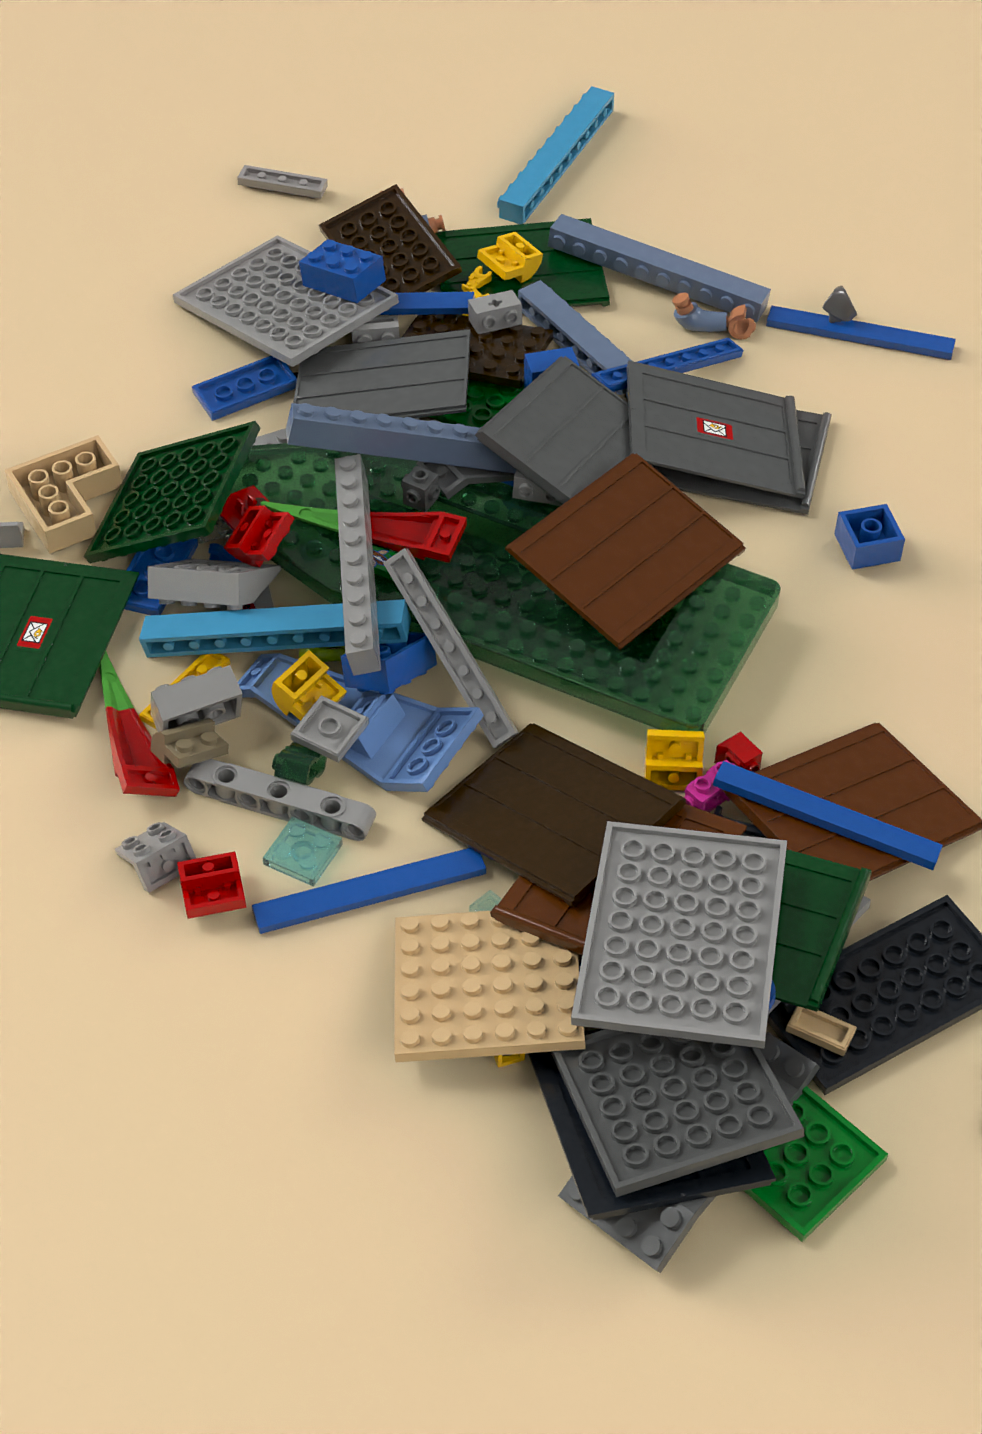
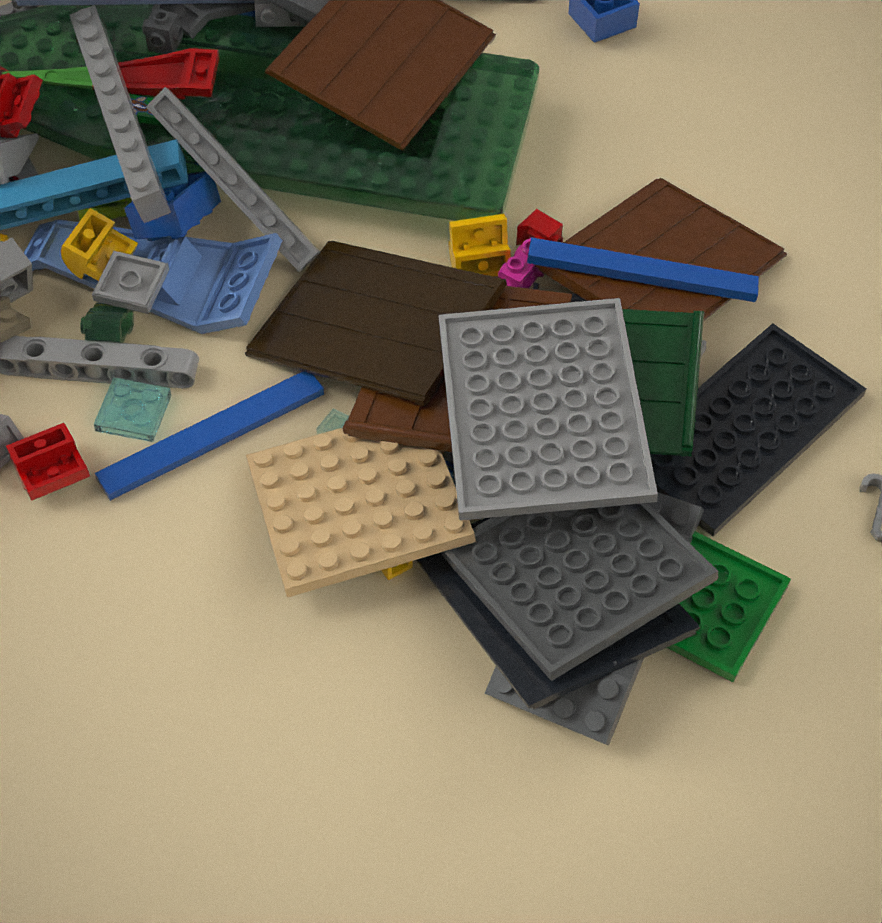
camera: 15 degrees left, 5 degrees up
(821, 1029) = (694, 473): tan tile -> none

